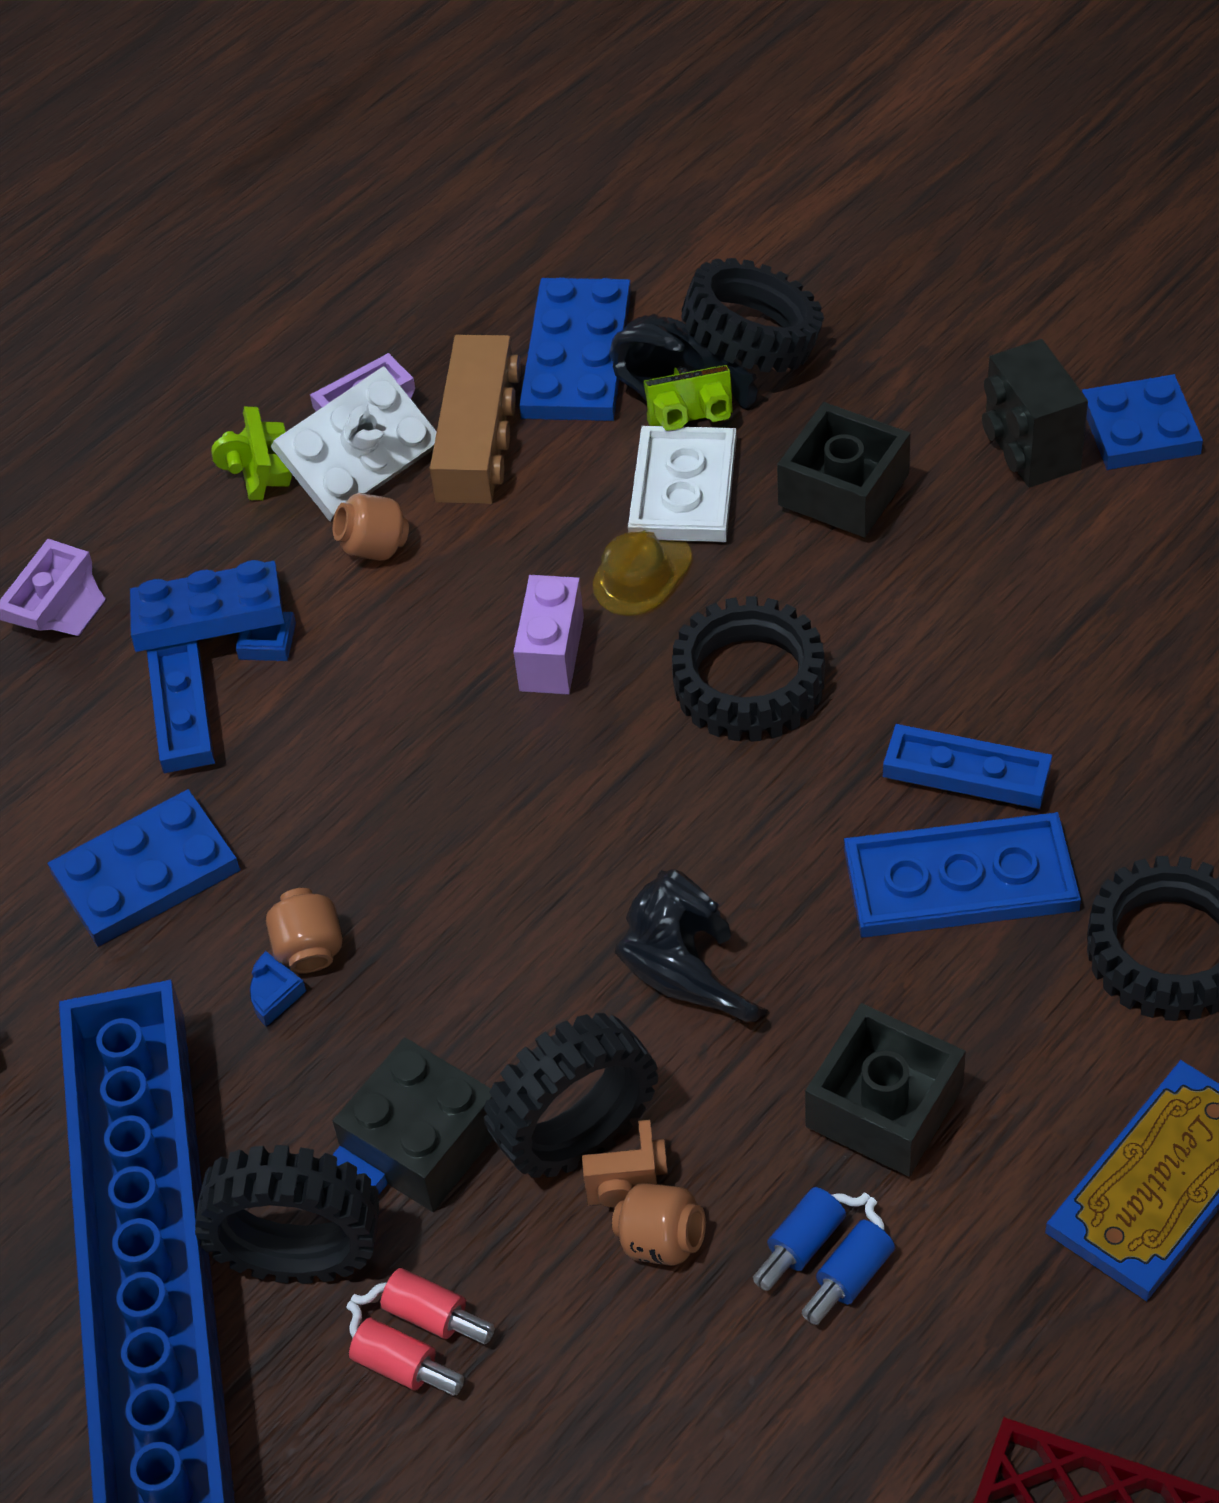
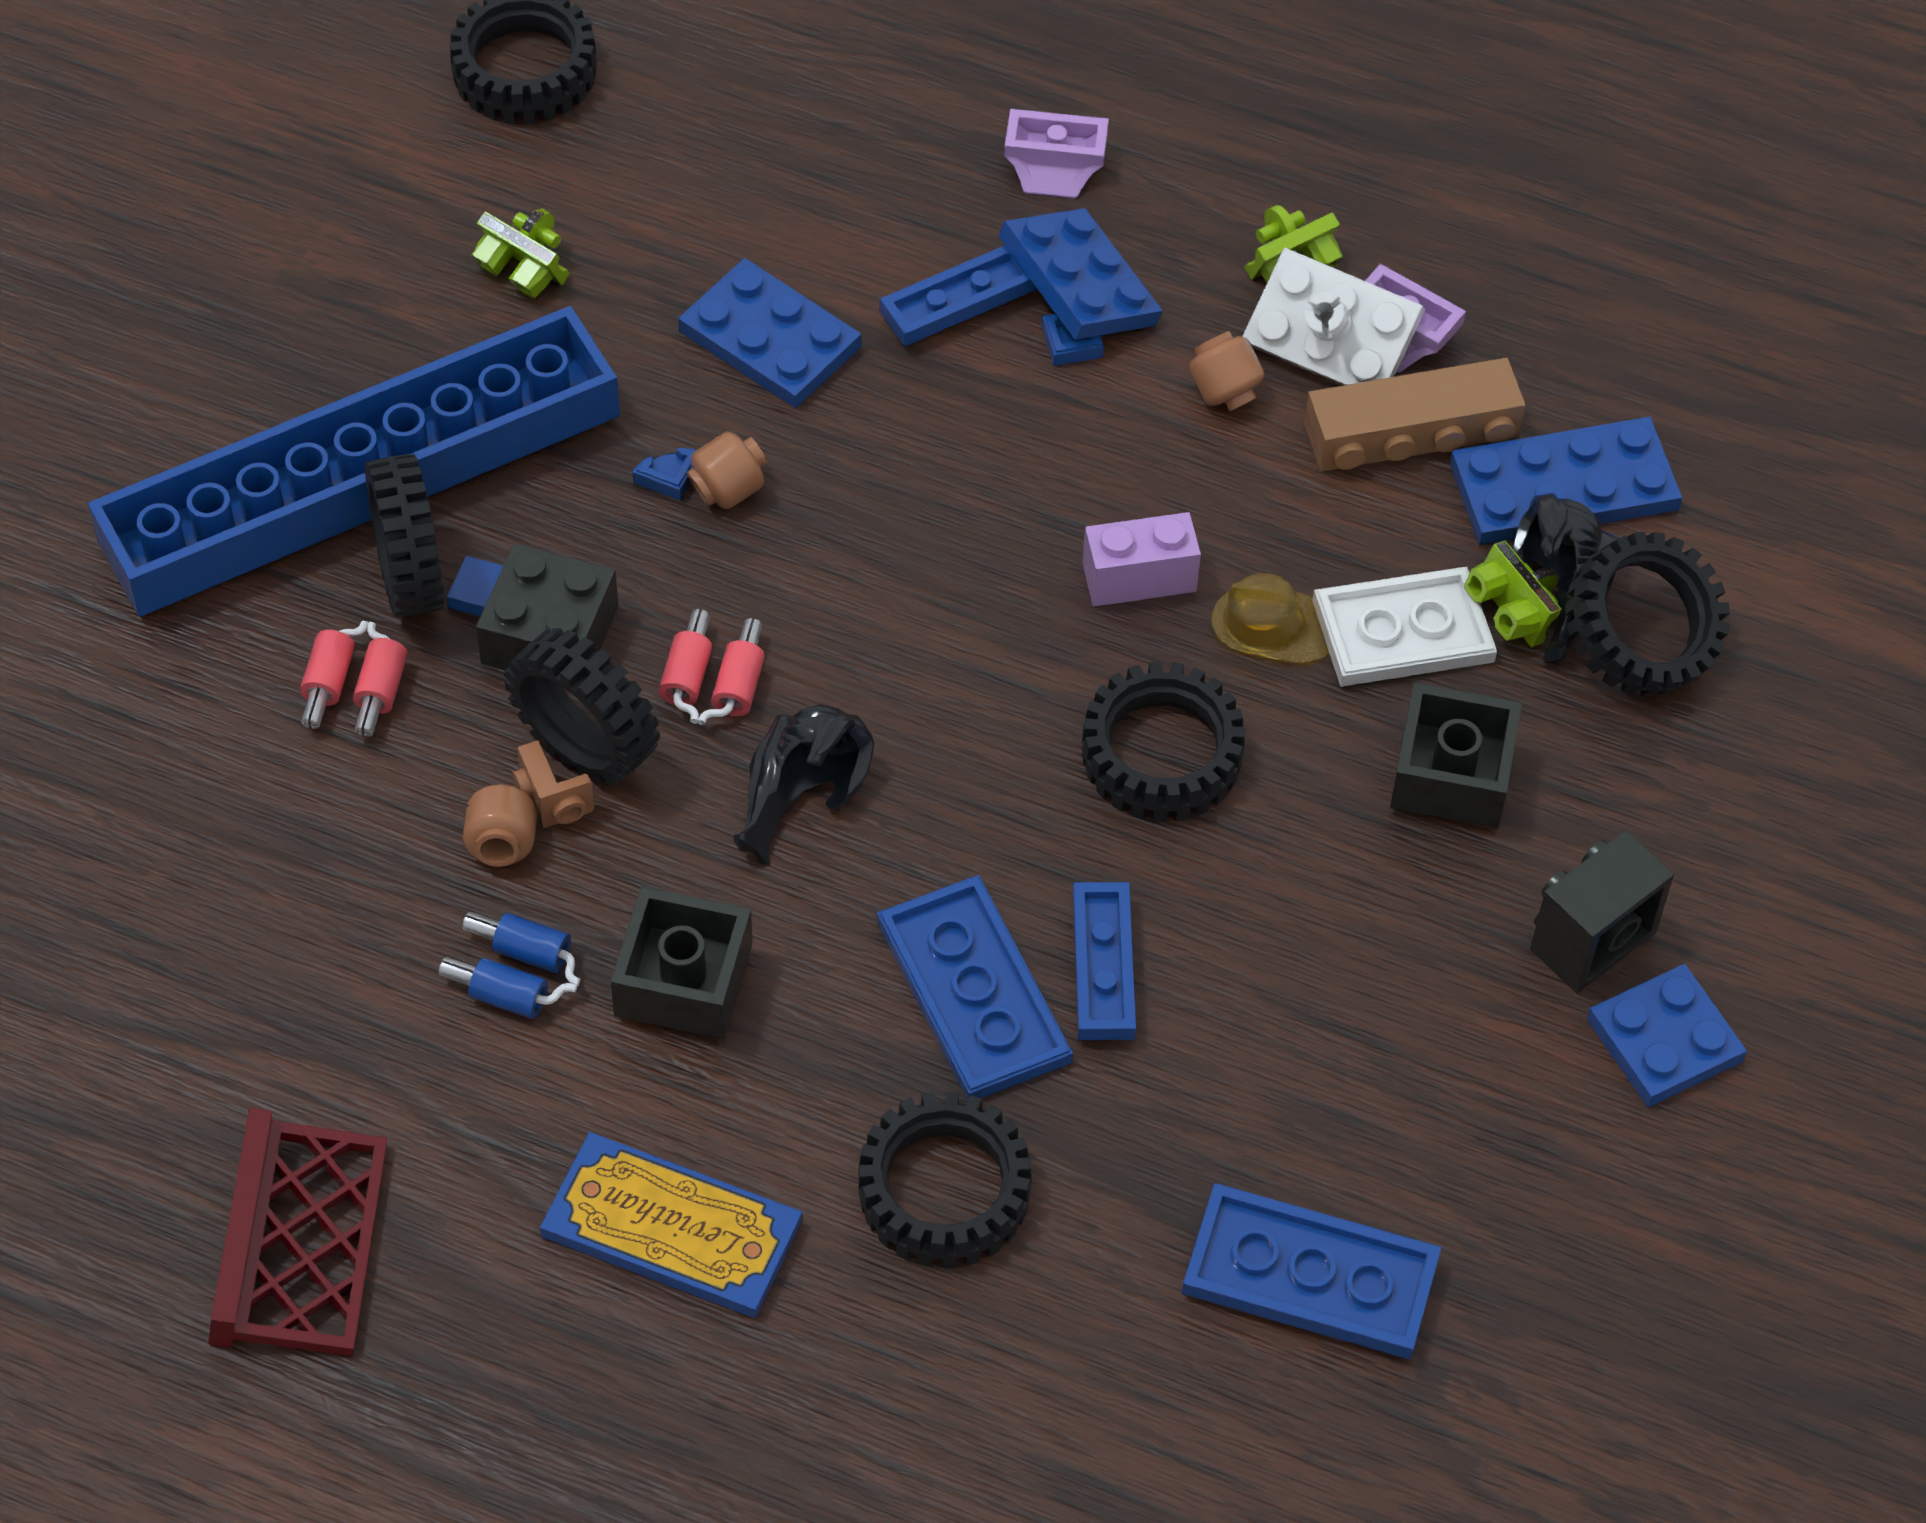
camera: 65 degrees right, 5 degrees up
(540, 976) = (736, 676): none -> coral piece

